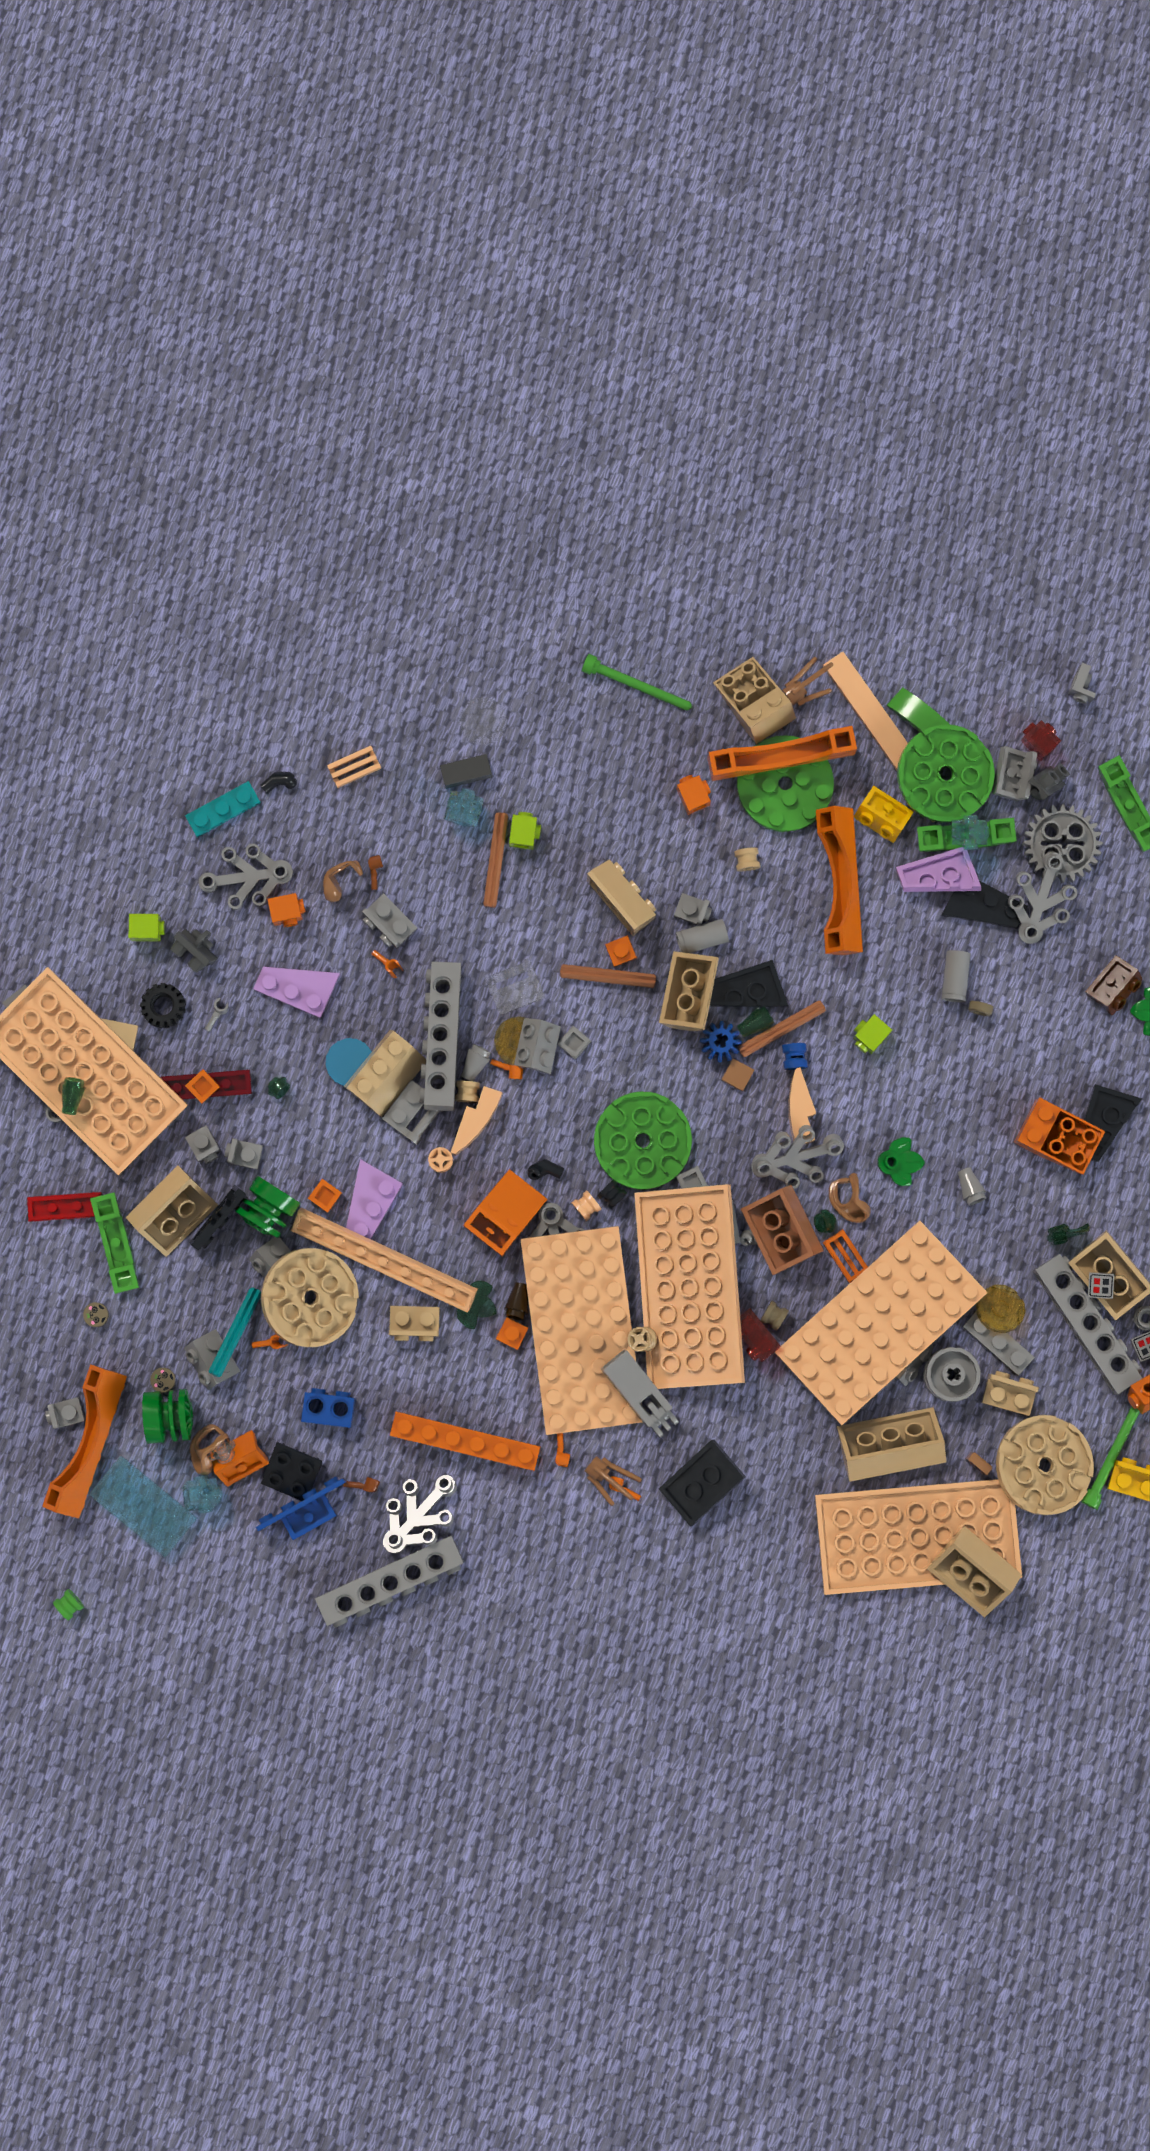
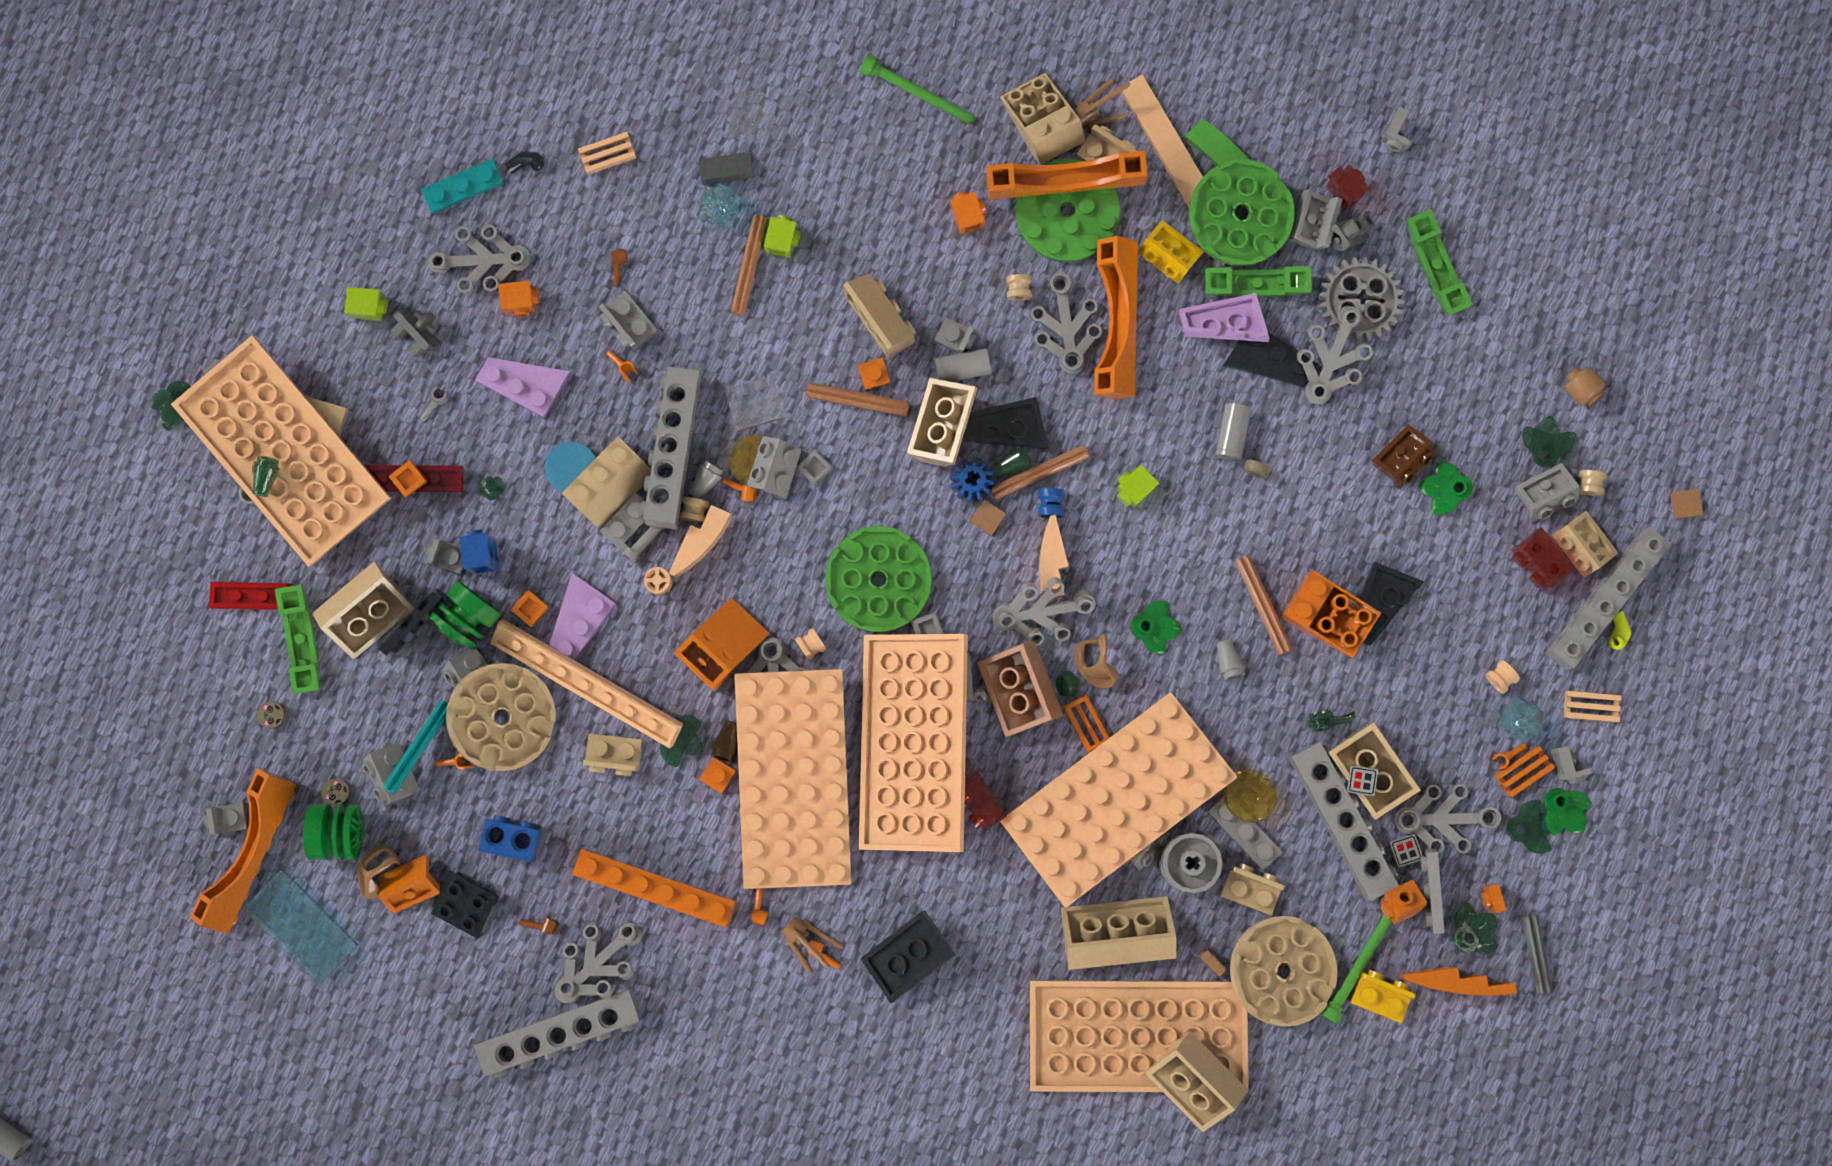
camera: 10 degrees right, 0 degrees up
(68, 1604) = (208, 1026): bright green wheel -> none
(152, 995) = (366, 378): black tyre -> none
(201, 1494) = (355, 925): clear light blue brick -> none
(203, 1145) = (405, 543): light grey bracket -> none
(223, 1453) = (391, 876): clear plate -> none
(275, 1148) = (479, 552): none -> blue brick
(306, 1514) = (476, 951): blue bracket -> none
(332, 889) = (569, 277): medium nougat piece -> none
(543, 1168) = (769, 599): black arm -> none
(612, 1194) = (839, 634): black wheel -> none
(636, 1387) = (844, 846): light grey hinge -> none
(637, 1340) = (851, 797): tan wheel -> none
(774, 1315) = (1003, 781): dark tan wheel -> none
(794, 893) = (1066, 328): none -> light grey plant
(812, 721) = (1102, 144): none -> tan bracket
(970, 832) = (1262, 277): clear light blue brick -> none
(997, 1133) = (1263, 605): none -> nougat axle

